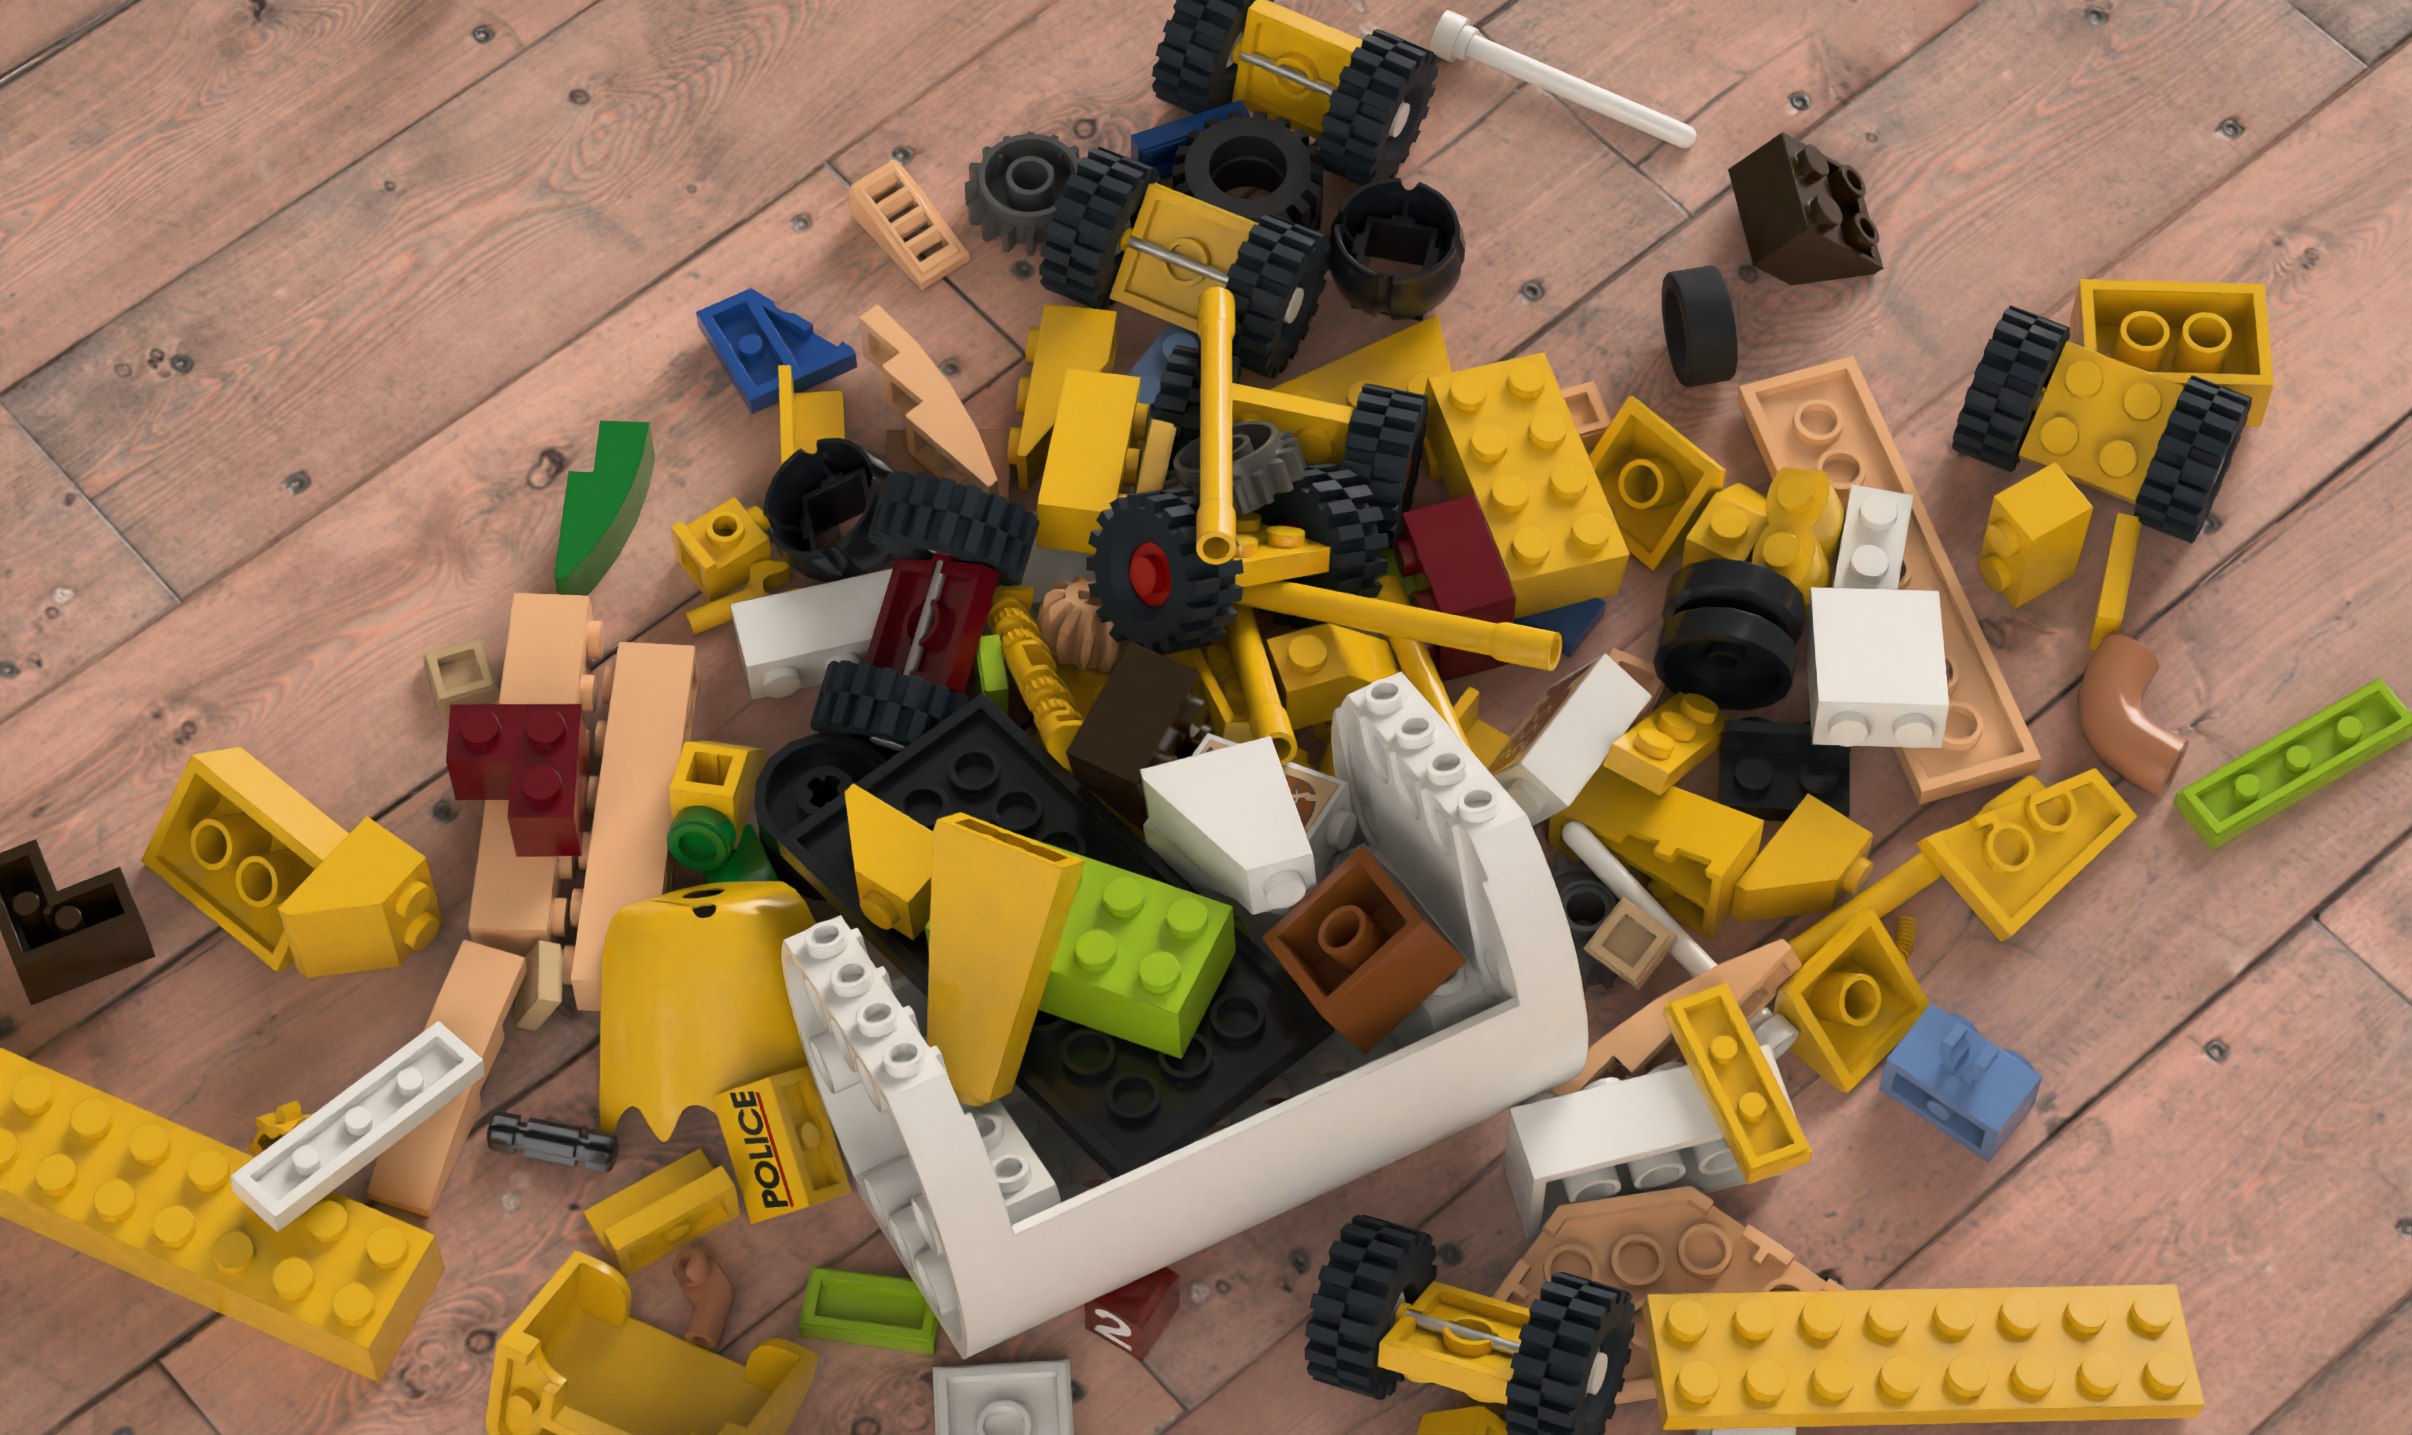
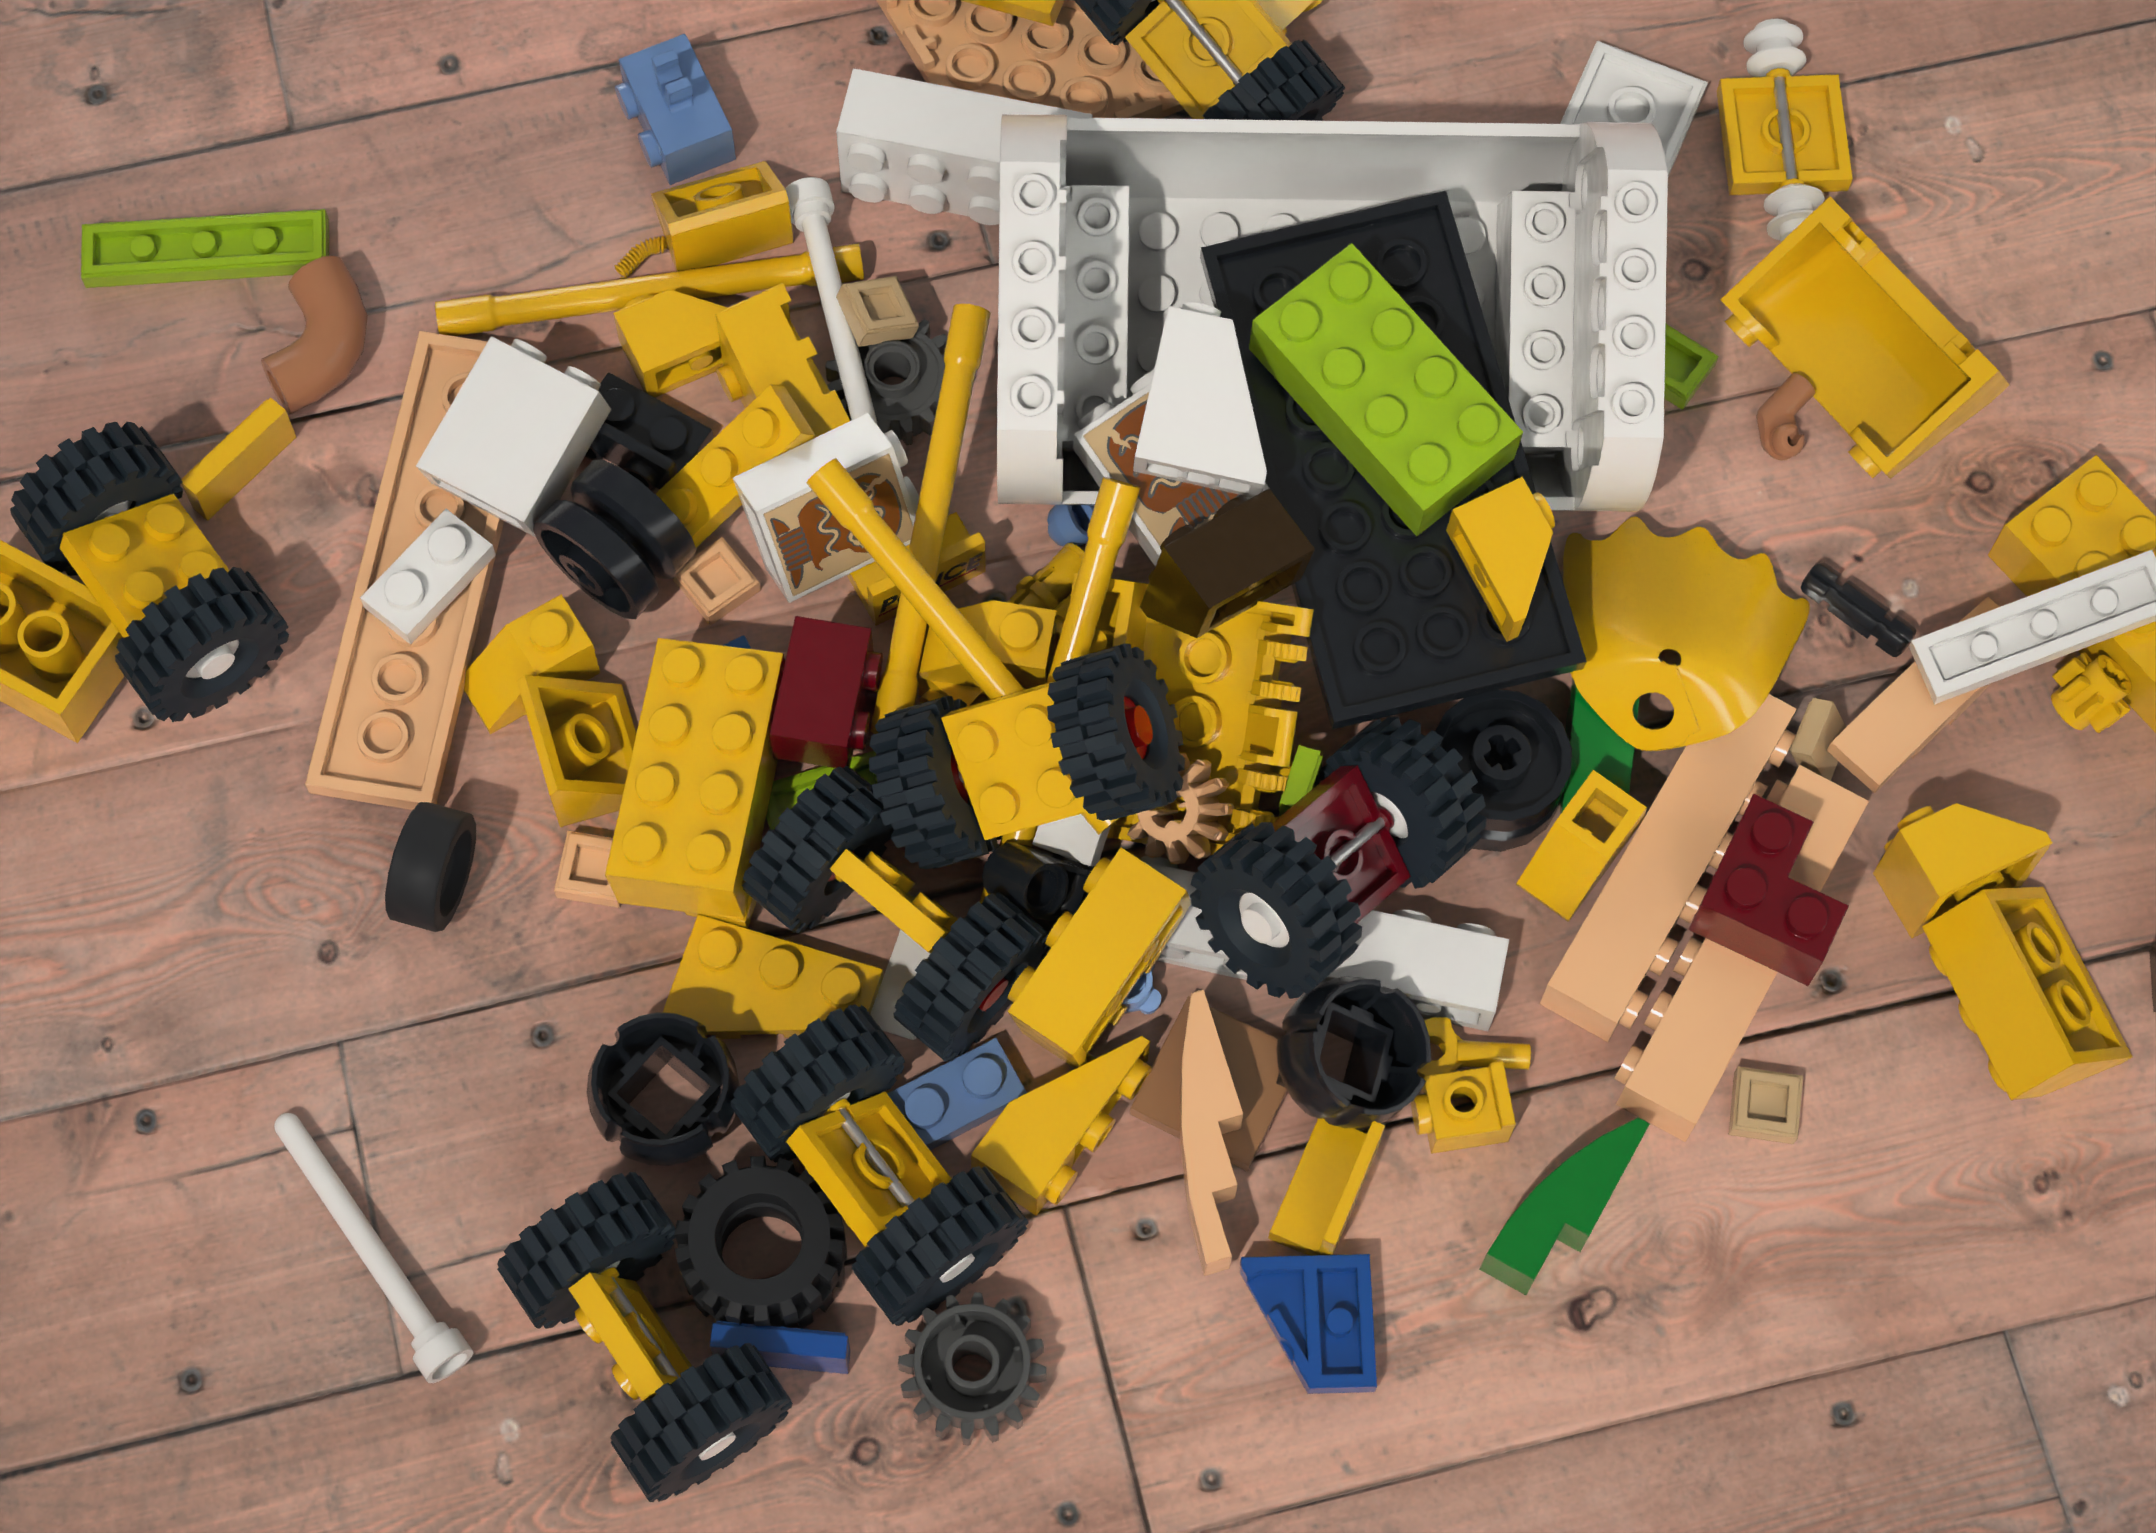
camera: 155 degrees left, 10 degrees up
(663, 1212) = (1789, 503): yellow panel -> none
(701, 838) = (1628, 779): green tile -> none
(781, 1144) = (1681, 492): yellow panel -> none
(886, 194) = (1124, 1452): light nougat slope -> none
(991, 948) = (1478, 352): yellow slope -> none
(1155, 456) = (1059, 884): yellow tile -> none
(1216, 513) = (917, 998): yellow piece -> none
(1262, 465) = (985, 788): dark grey gear -> none
(1363, 950) = (1157, 245): dark orange brick -> none
(1646, 1038) = (866, 220): light nougat slope -> none
(1737, 1083) = (885, 104): yellow tile -> none
(1802, 529) = (494, 594): yellow brick -> none
(1804, 214) = (243, 959): dark brown slope -> none
(2028, 850) = (484, 262): yellow wing -> none
(2034, 535) = (285, 507): yellow brick -> none

